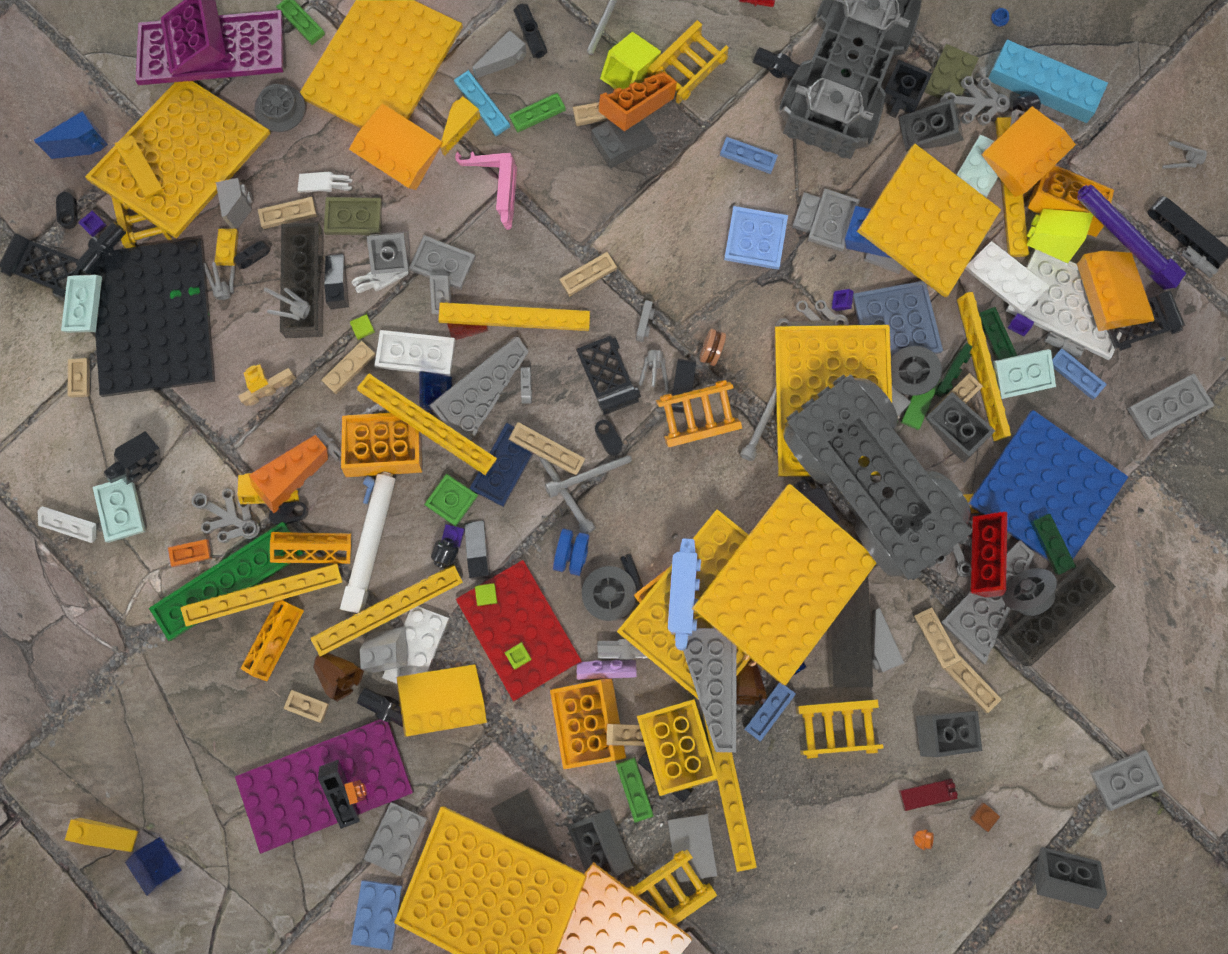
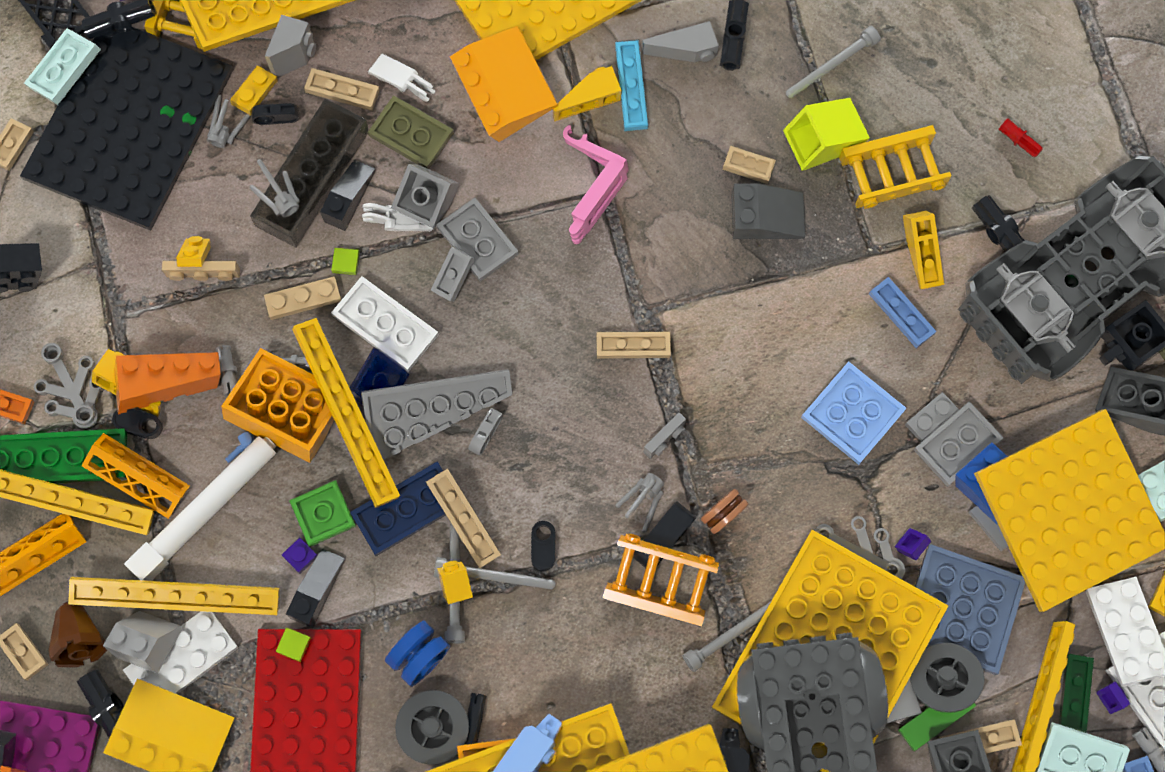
camera: 30 degrees right, 5 degrees down
(444, 552) = (277, 569): black head -> none
(464, 330) = (461, 326): clear red plate -> none
(514, 316) = (519, 346): yellow plate -> none
(518, 656) = (285, 737): lime tile -> none
(537, 112) = (687, 130): bright green tile -> none
(567, 492) = (454, 582): none -> yellow brick
(618, 396) = (581, 505): black piece -> none
(638, 101) = (808, 180): orange wedge -> none
(737, 105) = (924, 248): none -> yellow slope
(954, 370) = (998, 705): dark green plate -> none

